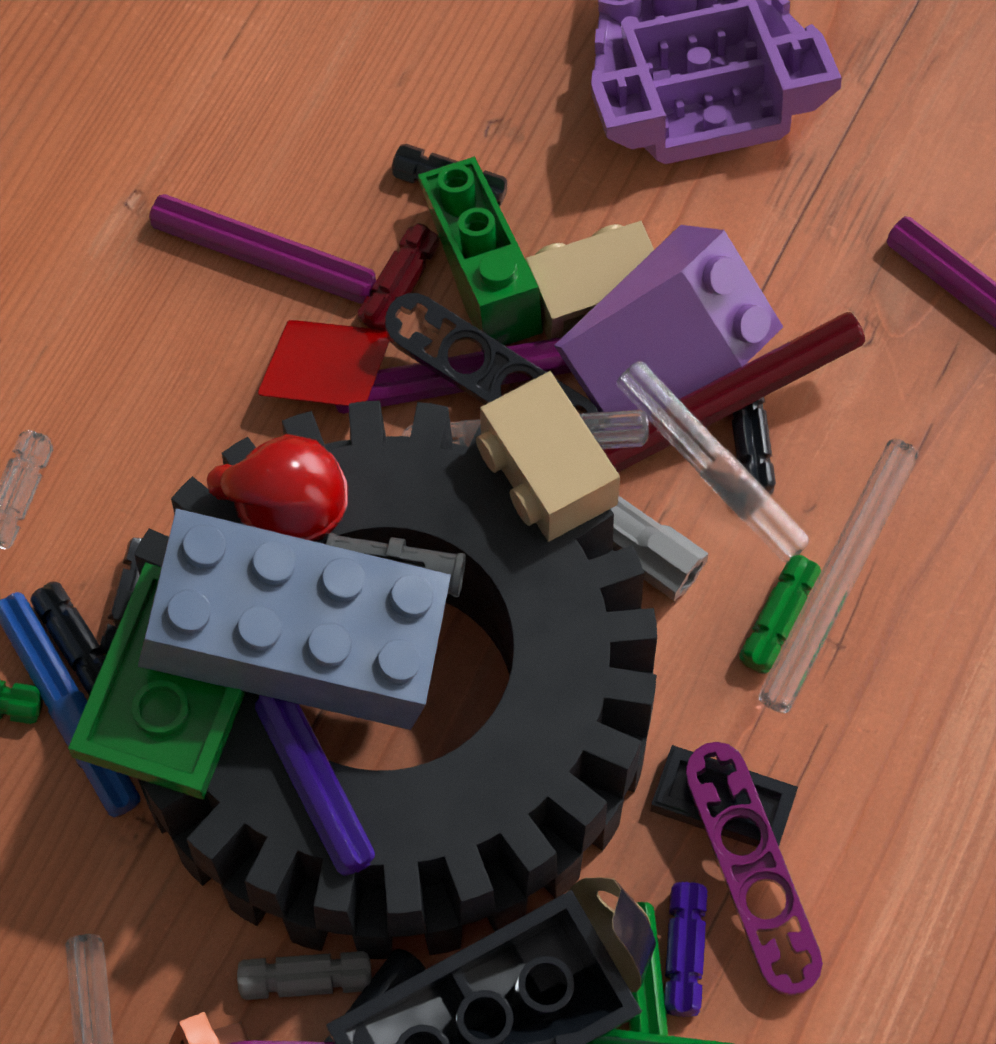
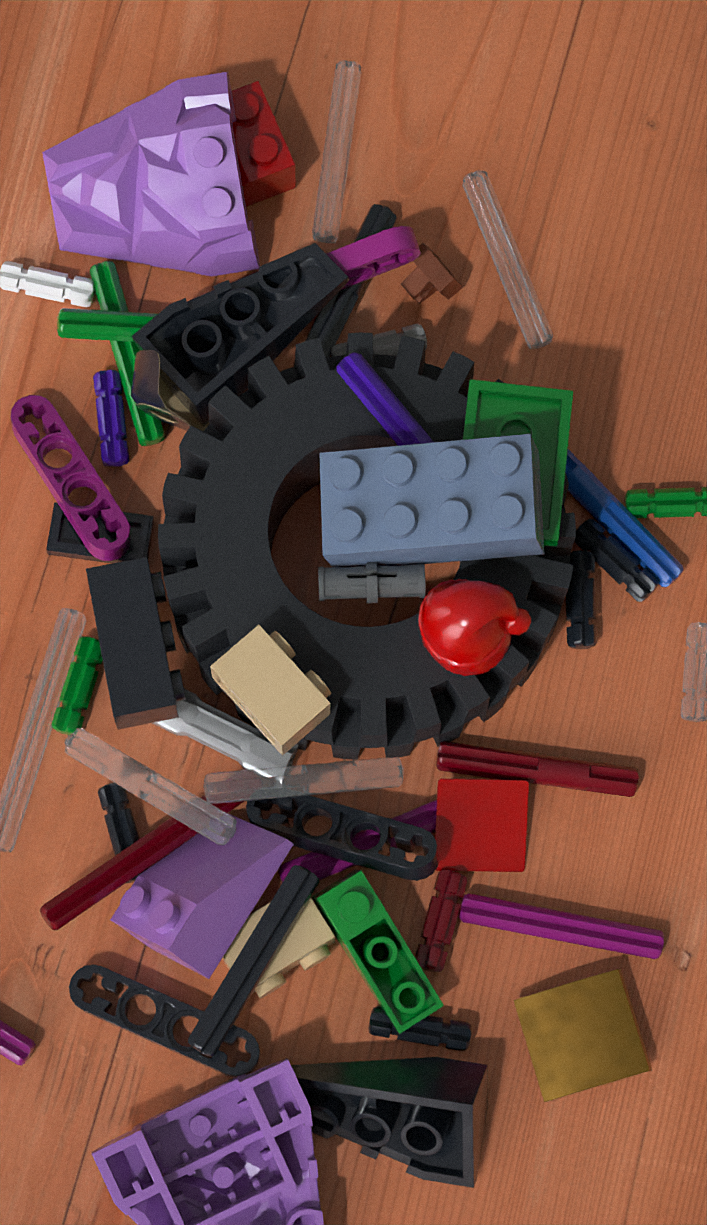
camera: 165 degrees right, 10 degrees up
(213, 406) = (537, 768): none -> dark red axle
(270, 135) = (582, 1035): none -> pearl gold slope
(461, 90) = (407, 1109): none -> black wedge
(623, 240) = (253, 960): none -> black axle
(705, 611) = (135, 642): none -> black wedge
(742, 227) = (161, 1027): none -> black beam

